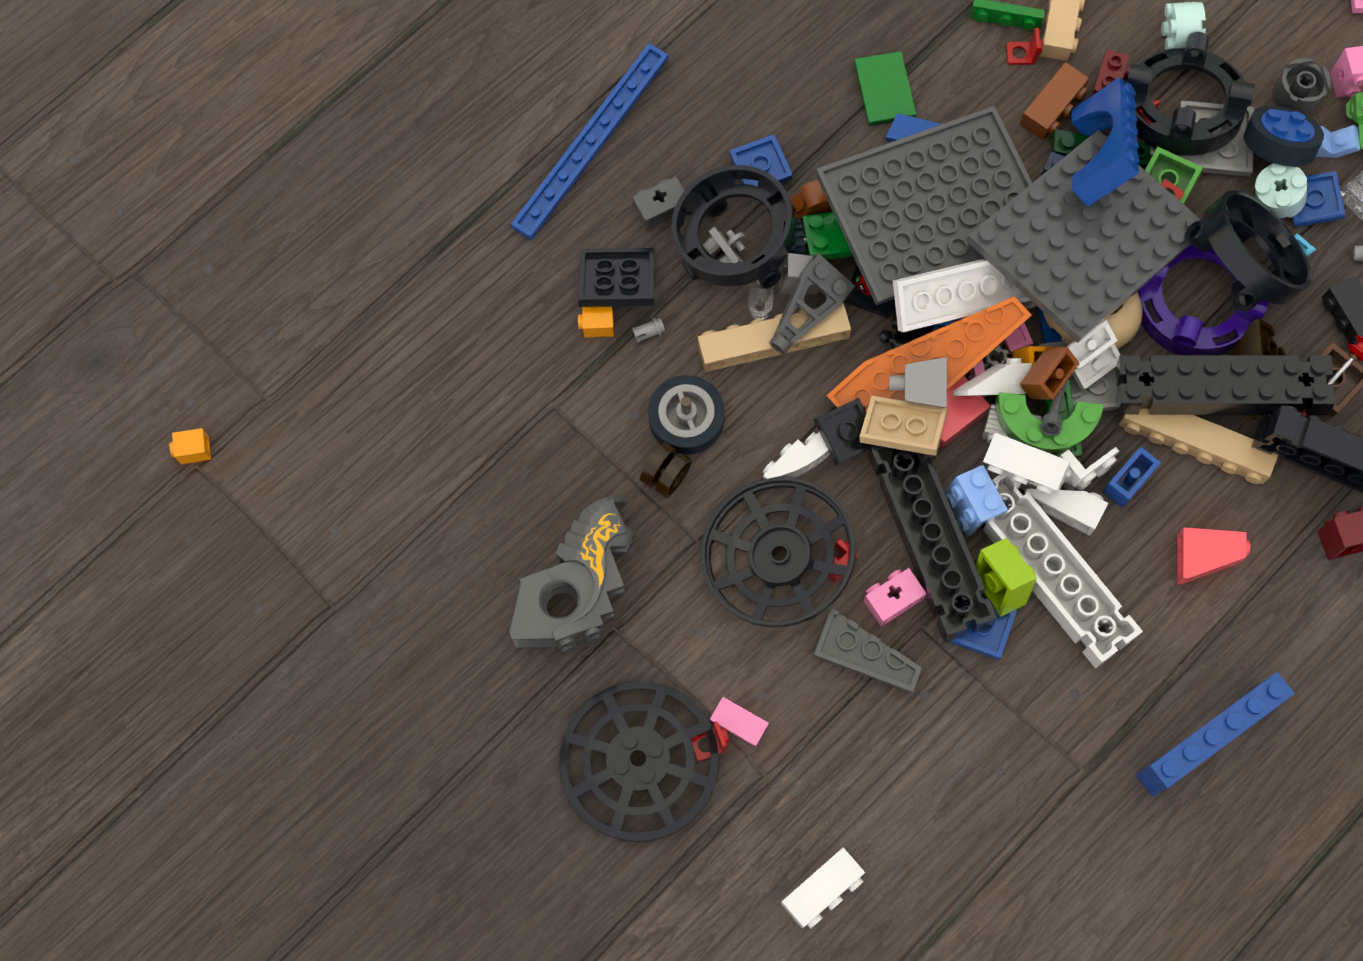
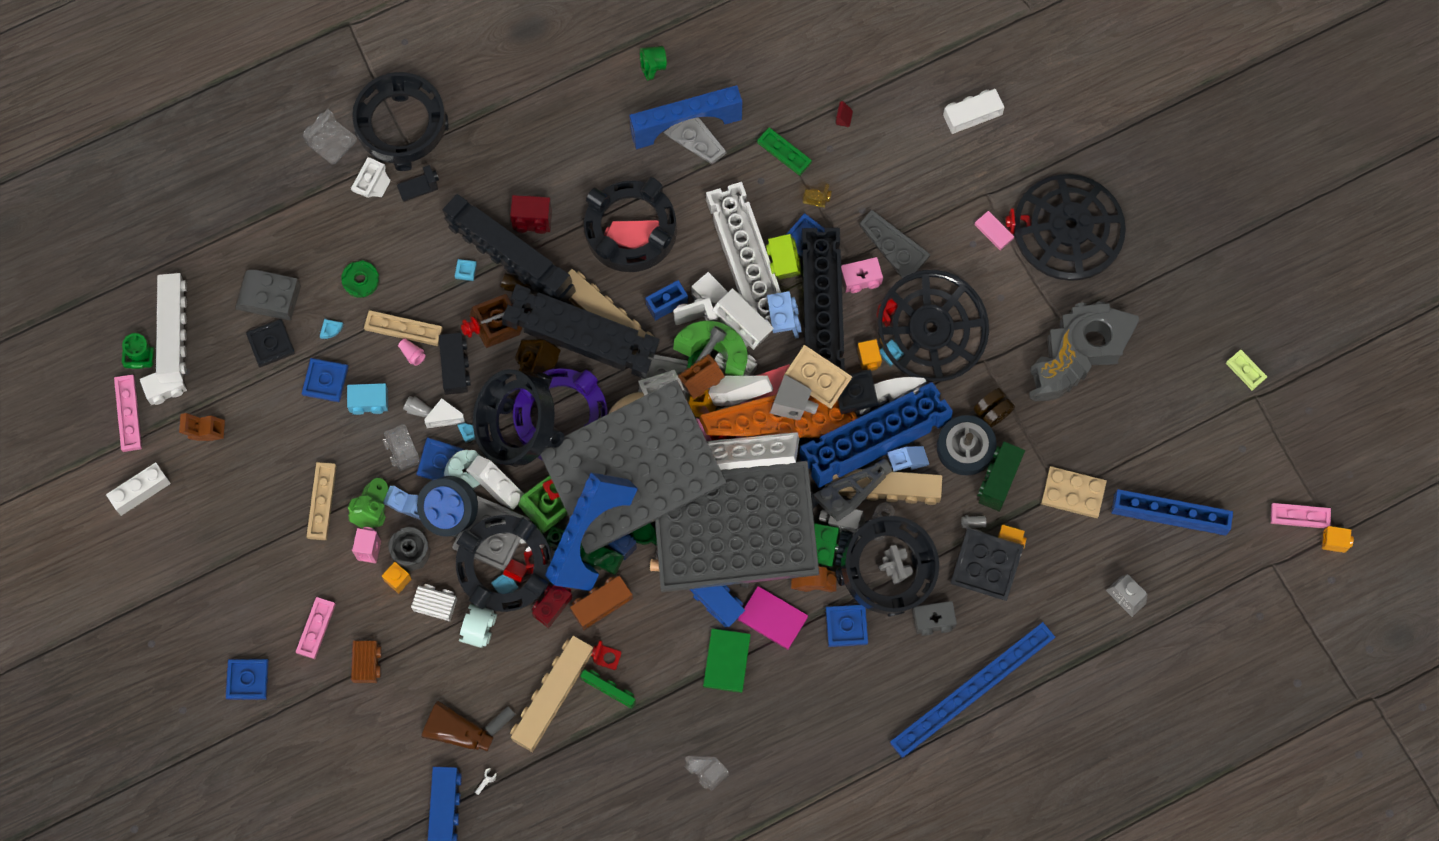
camera: 165 degrees left, 0 degrees up
(243, 463) = (1300, 515): none -> bright pink plate
(352, 632) = (1246, 370): none -> yellowish green plate
(405, 410) = (1172, 512): none -> blue brick
(433, 296) = (1128, 594): none -> light grey torso
(535, 406) = (1073, 492): none -> tan plate
(632, 384) = (1000, 476): none -> dark green brick
(752, 372) = (906, 457): none -> light blue slope
(804, 381) = (875, 434): none -> blue brick
(820, 508) = (895, 351): none -> medium azure tile
(842, 141) = (773, 618): none -> dark pink tile
(847, 492) = (869, 355): none -> light orange brick
(996, 686) = (816, 198): none -> clear yellow bracket
(999, 823) = (844, 115): none -> dark red slope
(1060, 741) = (784, 151): none -> green plate
(1169, 103) = (515, 570): none -> red tile
(1172, 91) = (504, 585): none -> medium azure tile
(1174, 715) = (696, 138): none -> light grey wing
(1217, 609) = (660, 240): none -> black piece
(1244, 43) = (434, 603): none -> white brick
(1249, 175) = (495, 482): none -> white brick
(1295, 813) = (652, 60): none -> green piece
(1300, 48) = (396, 577): none -> light orange brick
(1337, 254) = (443, 415): none -> white slope

